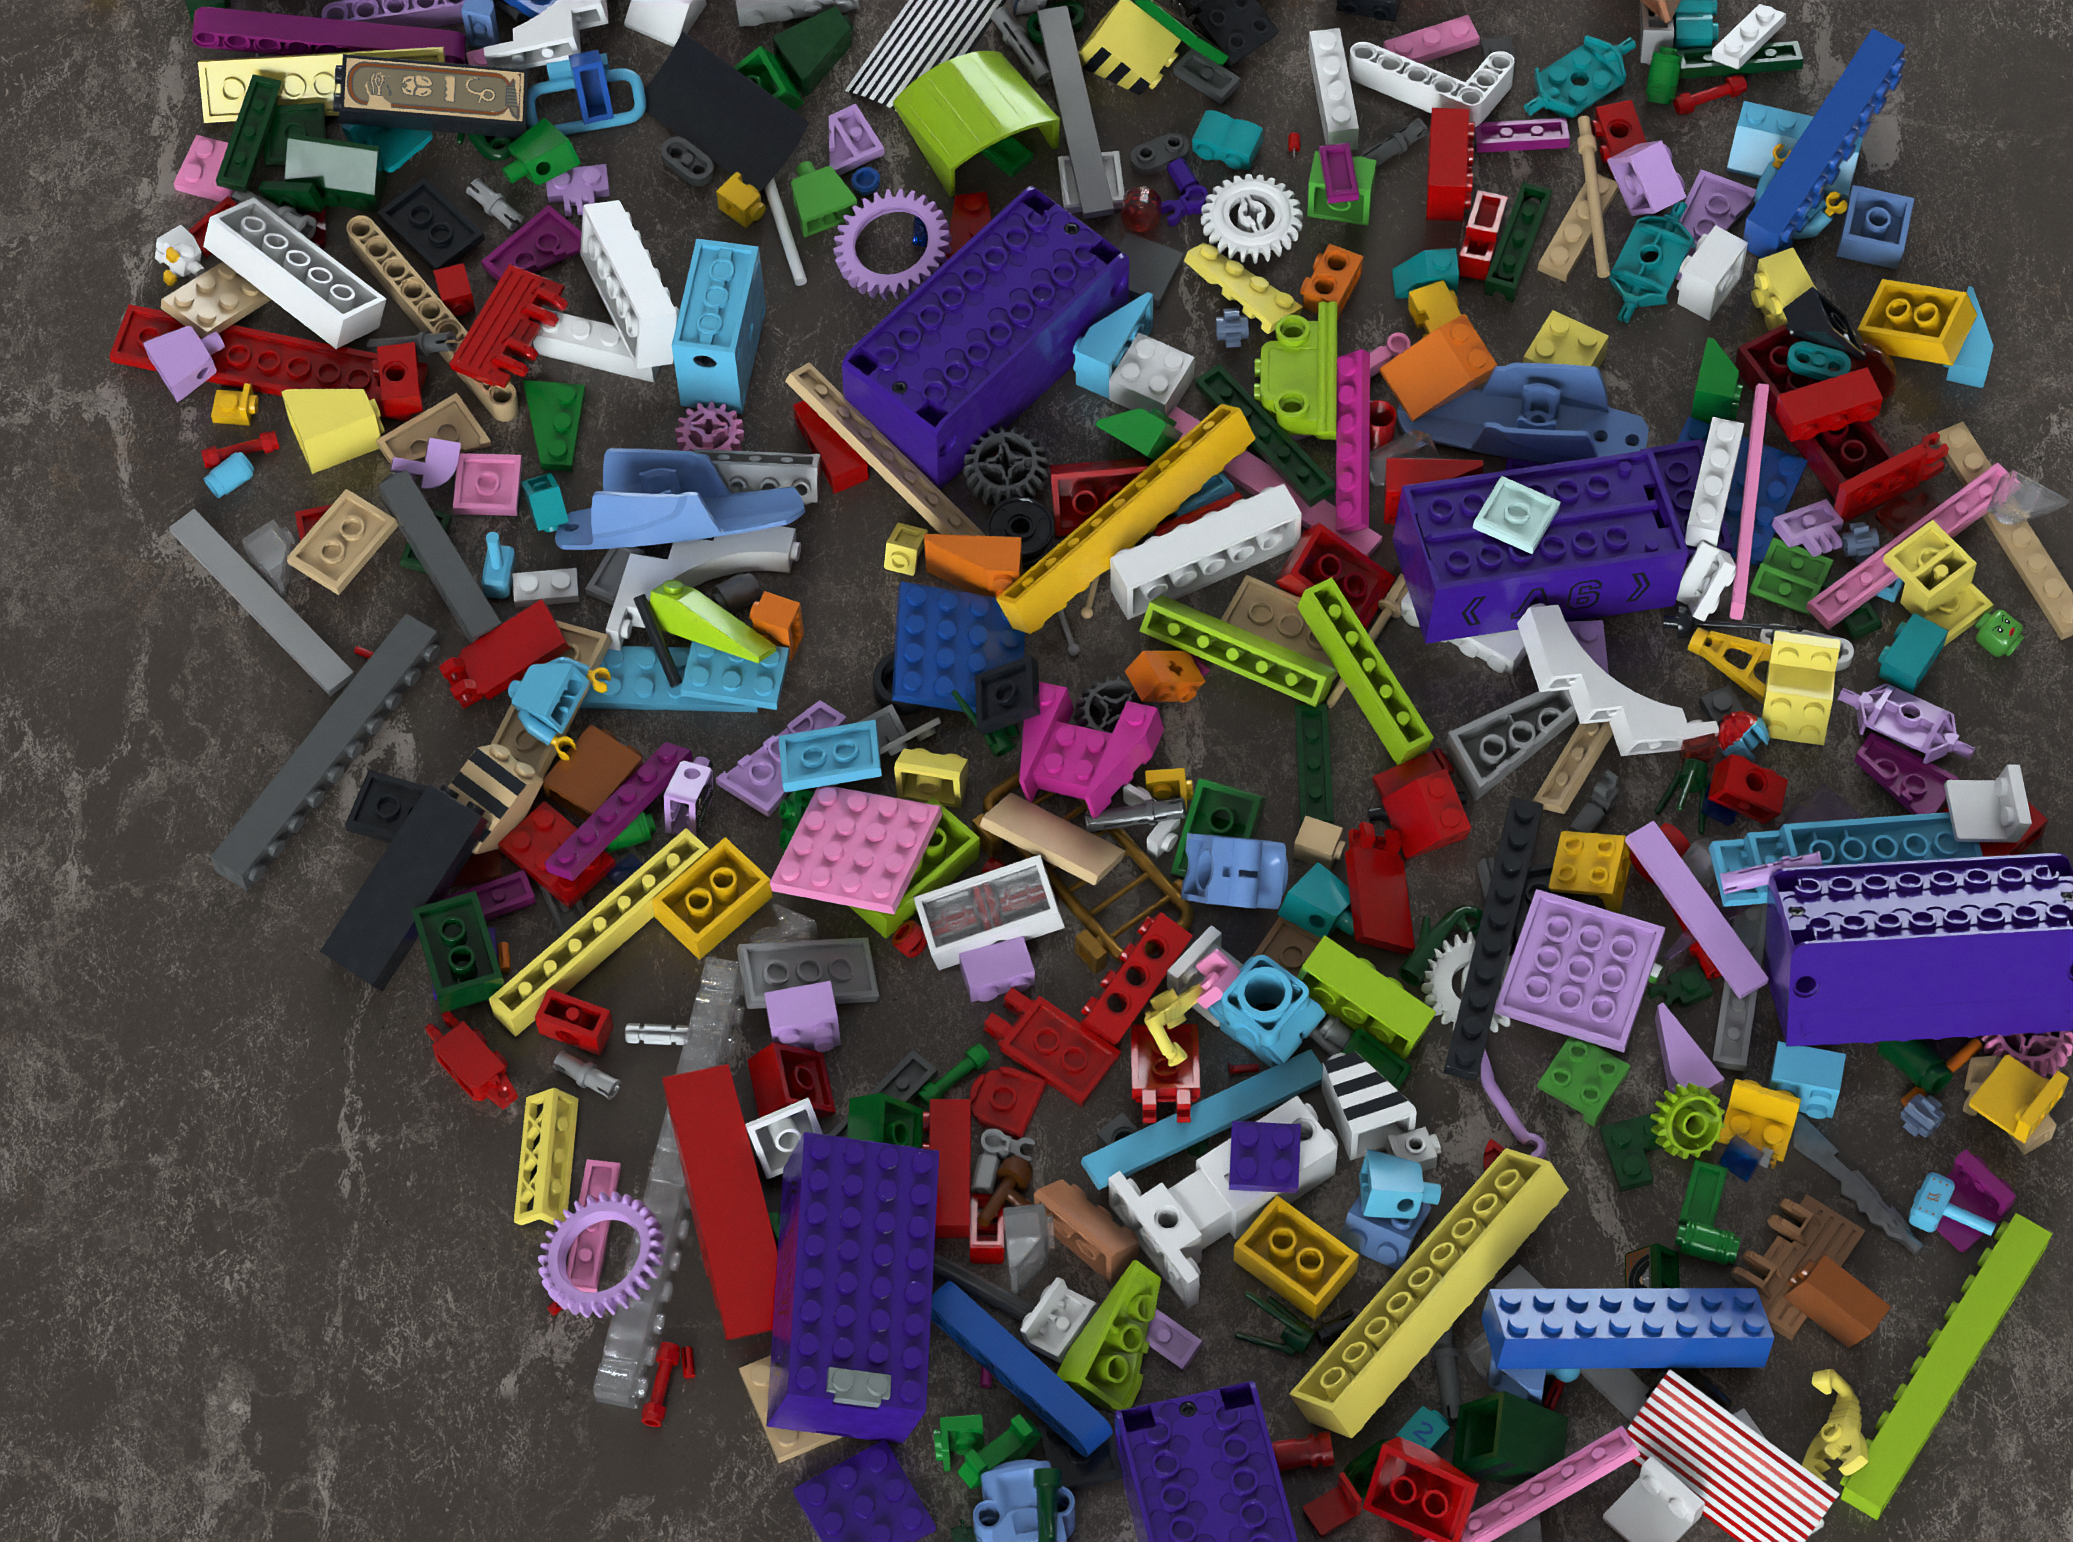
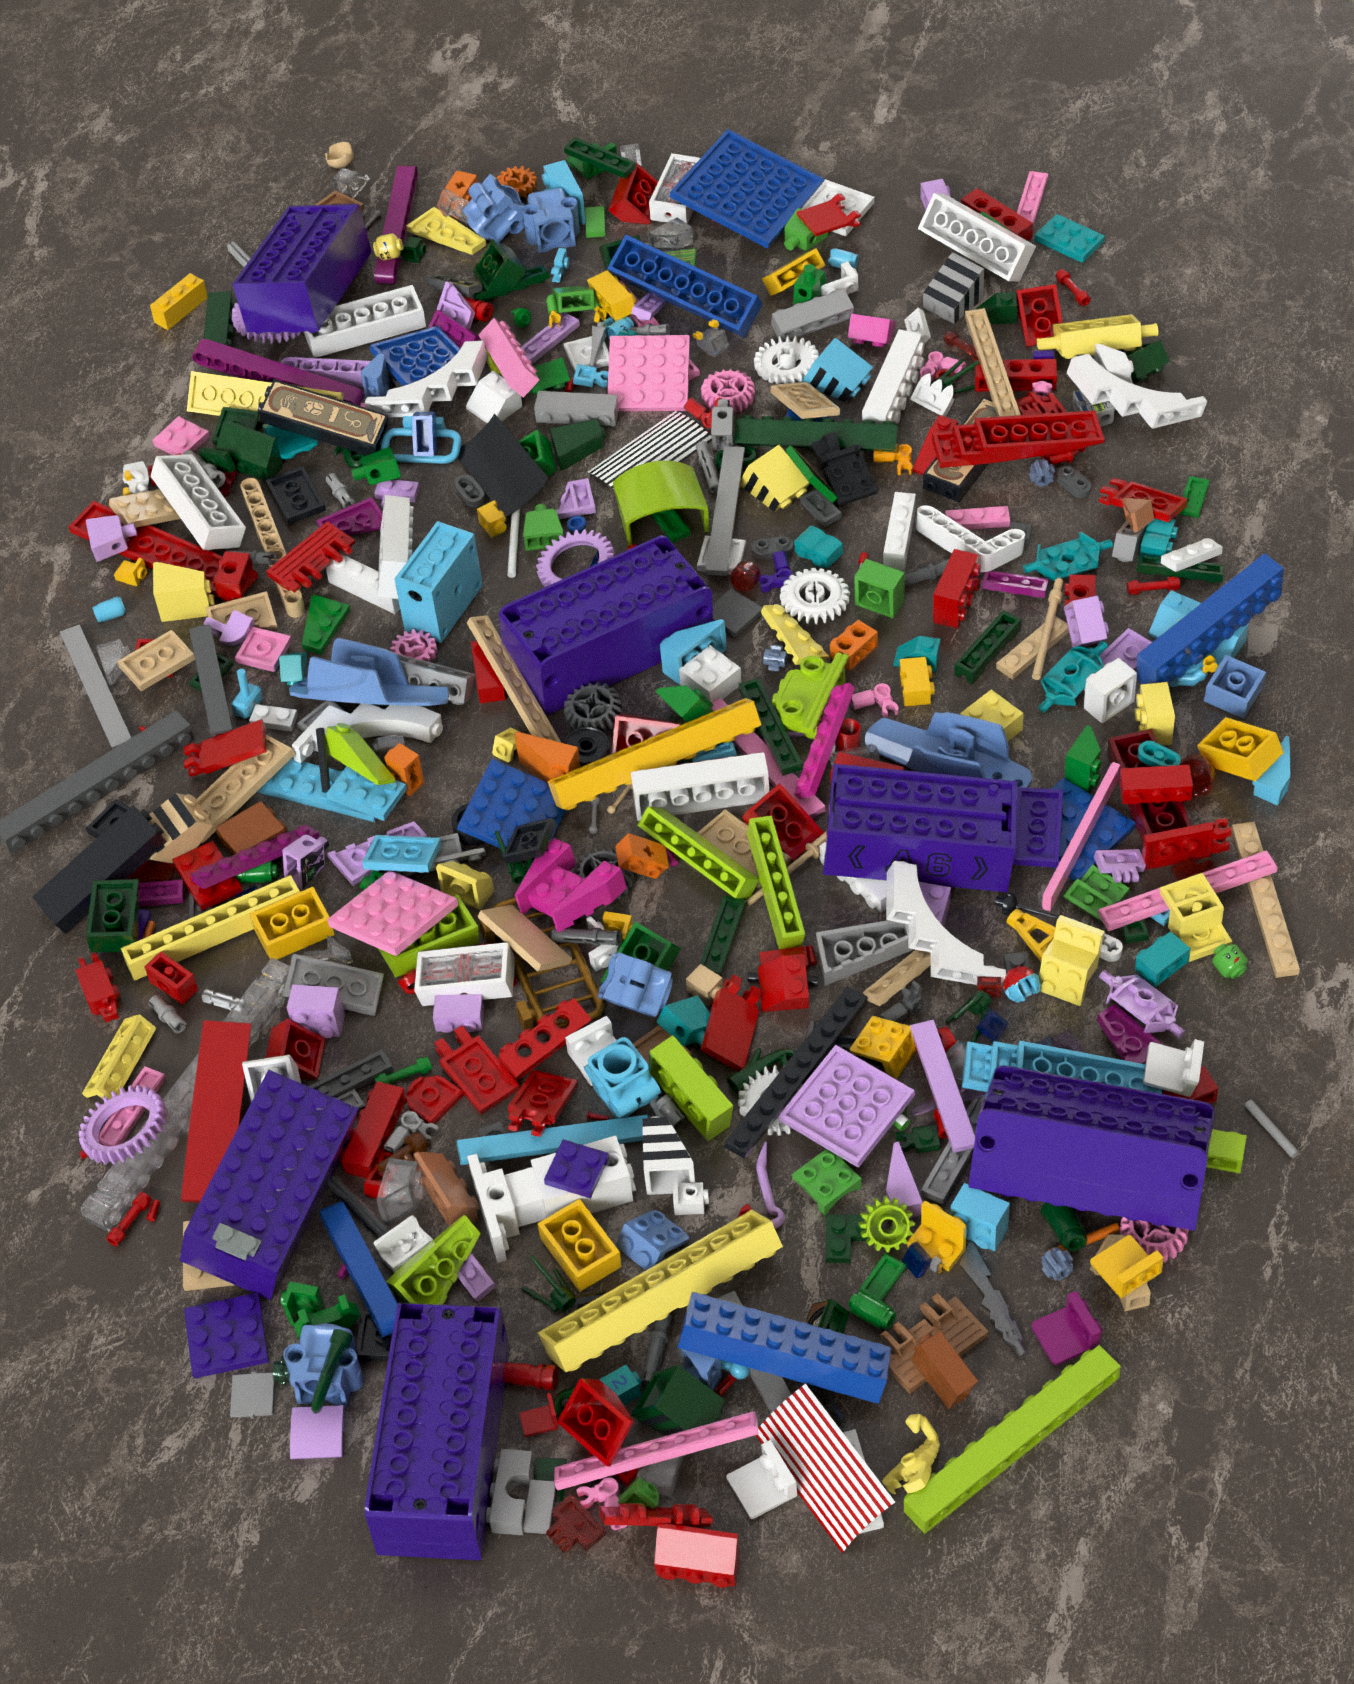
camera: 20 degrees right, 10 degrees down
(249, 133) = (206, 418): dark green plate -> none
(268, 442) = (140, 596): red bar -> none
(454, 289) = (292, 532): red brick -> none
(550, 697) = (238, 775): medium azure torso -> none
(885, 1120) = (342, 1085): green slope -> none
(1169, 1010) = (555, 1062): light yellow animal -> none
(1219, 976) = (596, 1042): bright pink bracket -> none
(1338, 173) = (875, 574): magenta tile -> none
(1378, 1056) = (689, 1132): green tile -> none
(1394, 1187) = (663, 1214): medium azure torso -> none
(1439, 368) = (899, 708): orange slope -> none
(1482, 235) = (964, 636): red slope -> none
(1516, 514) = (903, 798): light aqua tile -> none
(1663, 75) = (1123, 565): green head -> none
(1705, 578) = (1030, 876): white bracket -> none
(1714, 482) = (1057, 817): white brick -> none
(1748, 788) = (1000, 1018): red brick -> none
(1760, 874) = (986, 1069): lavender pin -> none
(1822, 323) = (1171, 733): black slope -> none
(1860, 541) = (1152, 879): sand blue gear -> none
(1933, 1202) = (1043, 1323): medium azure piece -> none
(2022, 499) = (1275, 877): clear slope -> none

